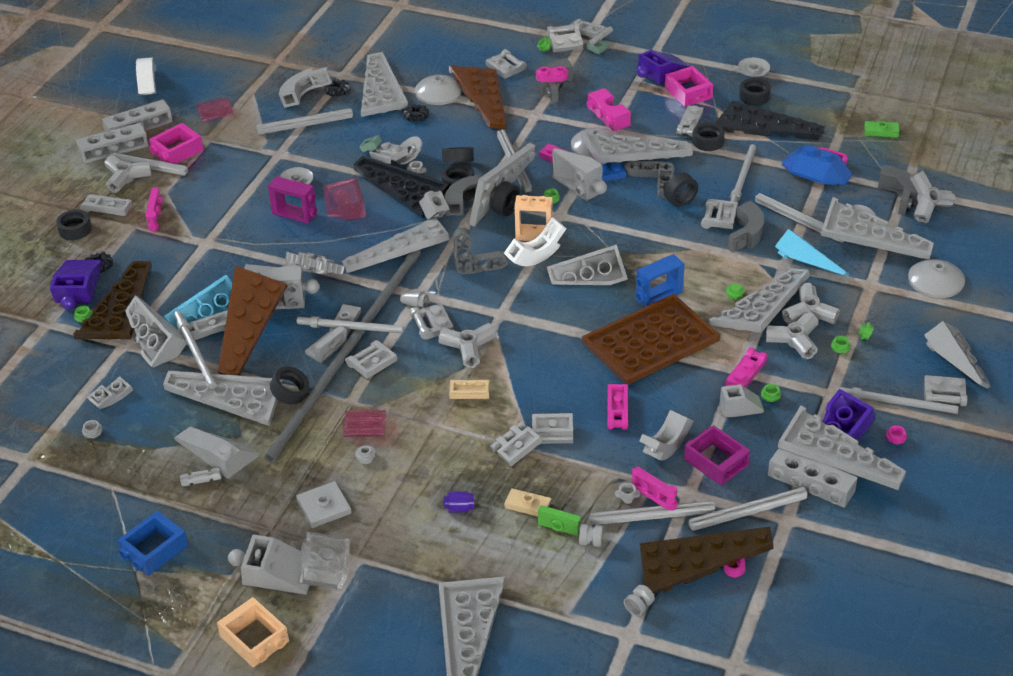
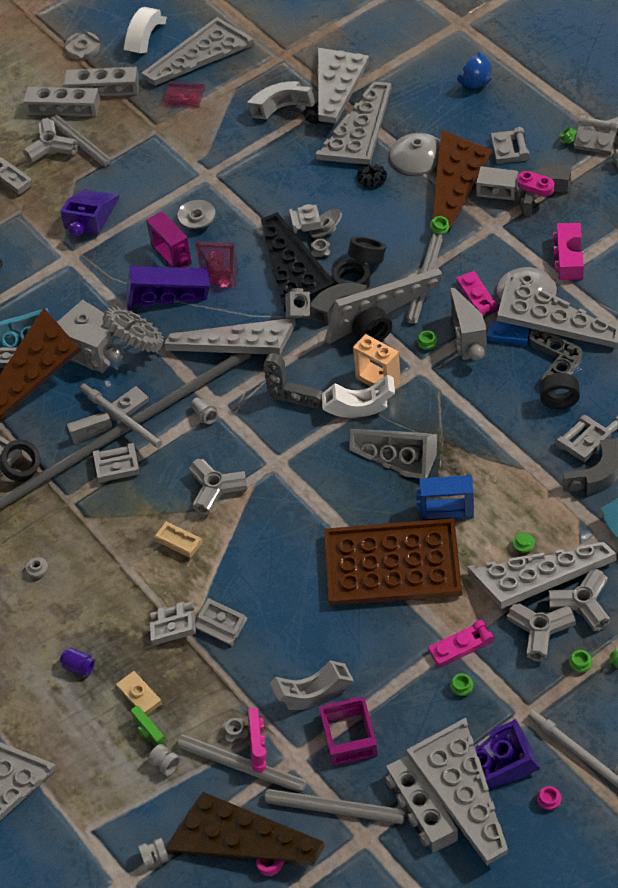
camera: 35 degrees right, 10 degrees up
(96, 104) = (82, 46): none -> light grey tile
(154, 209) = (45, 198): dark pink plate -> none
(191, 144) = (119, 136): dark pink window -> none
(200, 207) = (87, 211): none -> dark purple slope
(203, 76) = (205, 46): none -> light grey wing
(304, 121) = (254, 143): light grey axle -> none
(312, 229) = (165, 285): none -> dark purple wedge
(339, 62) = (337, 79): none -> light grey wing
(364, 423) = (58, 533): clear pink plate -> none
(370, 144) = (297, 199): sand green plate -> none
(436, 317) = (209, 445): light grey plate -> none
(444, 26) = (476, 72): none -> blue cylinder
(499, 123) = (439, 225): none -> bright green plate
(520, 85) = (497, 183): none -> light grey brick
(617, 406) = (299, 626): dark pink plate -> none
(739, 401) = (417, 681): light grey slope -> none

